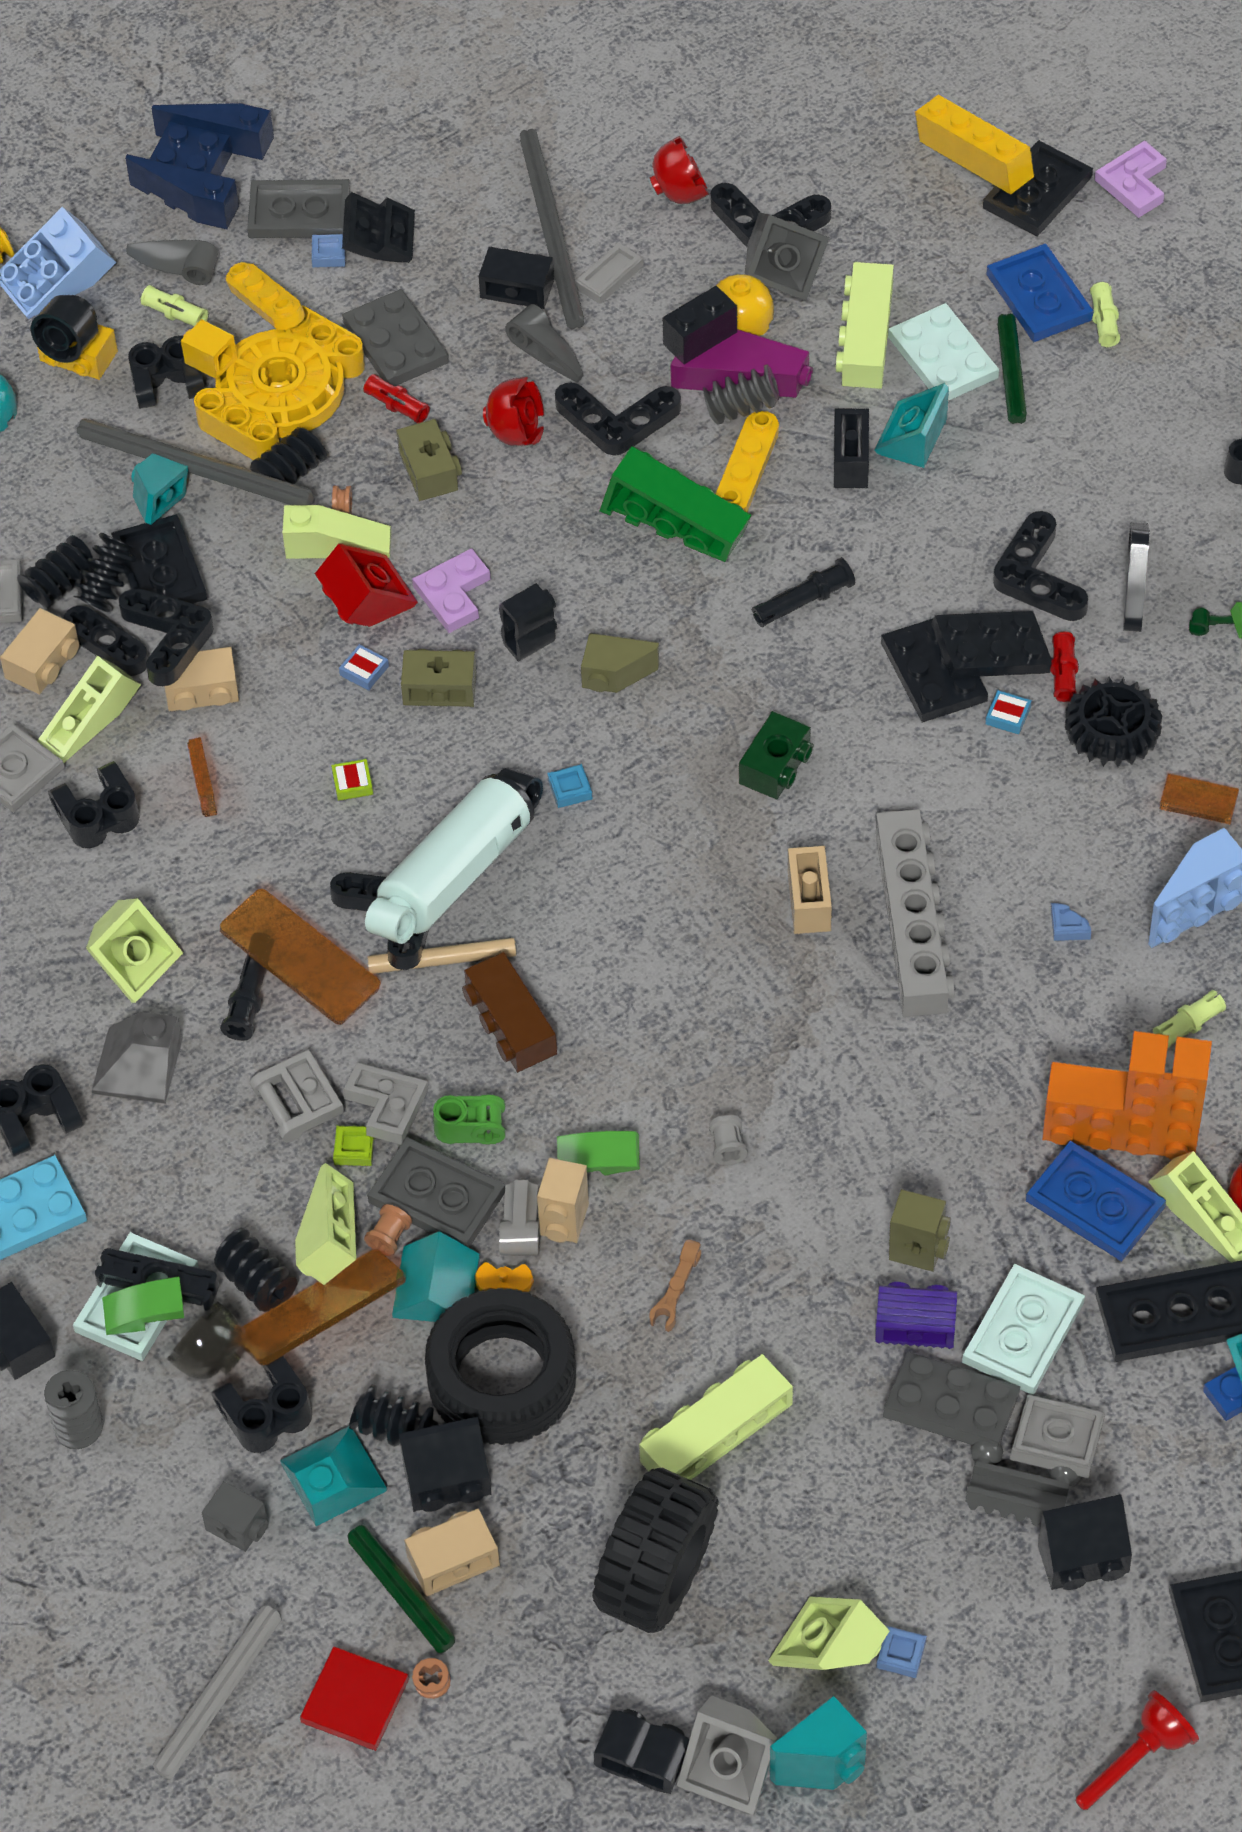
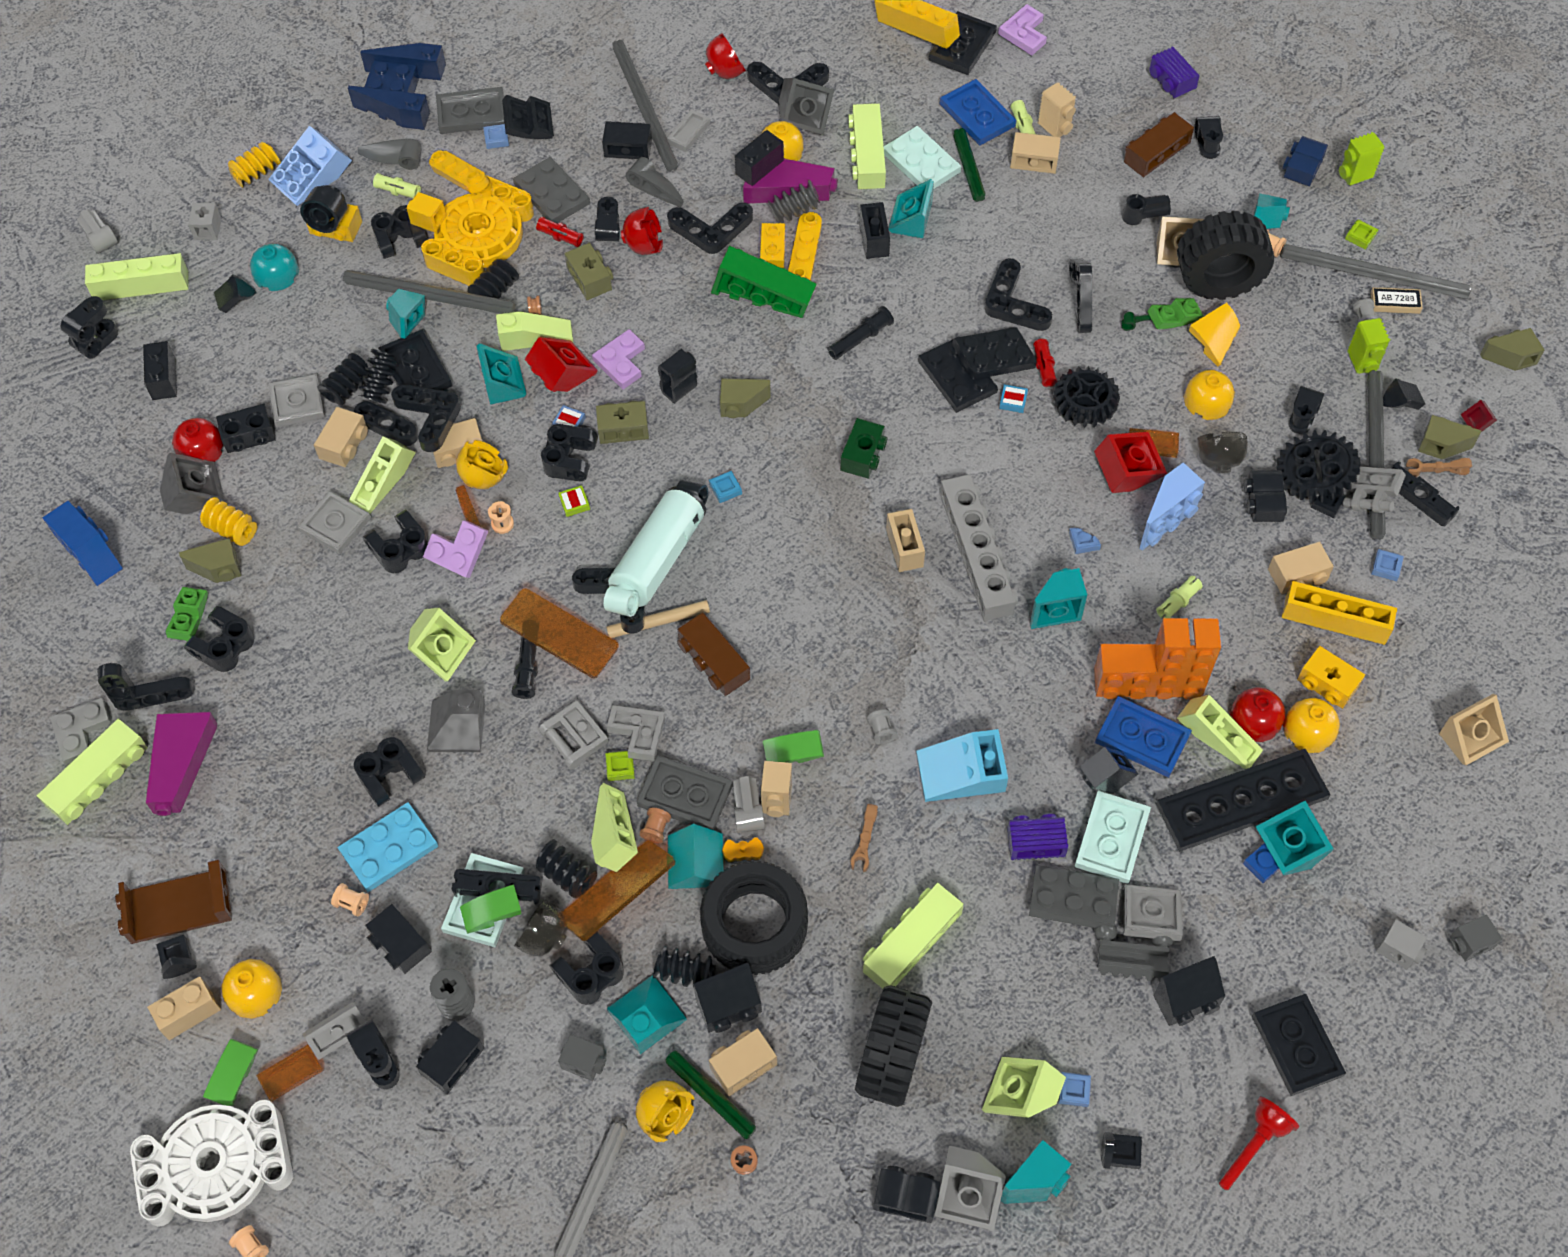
camera: 10 degrees left, 5 degrees up
(58, 1491) = (449, 1056): none -> black brick
(178, 833) = (457, 555): none -> lavender plate
(227, 713) = (480, 465): none -> yellow cylinder
(250, 789) = (504, 517): none -> light nougat bush
(278, 591) = (501, 374): none -> teal slope
(334, 1596) = (663, 1109): none -> yellow cylinder
(346, 698) = (559, 451): none -> black piece
(354, 1698) = (691, 1184): red tile -> none
(467, 390) = (607, 220): none -> black piece
(471, 1119) = (700, 735): bright green piece -> none
(700, 452) = (773, 243): none -> yellow brick
(830, 1207) = (963, 766): none -> medium azure slope
(919, 1230) = (1029, 776): olive brick -> none
(948, 1738) = (1121, 1151): none -> black tile
(1010, 998) = (1060, 599): none -> teal slope
(1031, 1236) = (1108, 770): none -> black brick
(1112, 362) = (1035, 152): none -> tan brick
(1154, 304) = (1057, 110): none -> tan brick
(1155, 818) = (1129, 461): none -> red slope

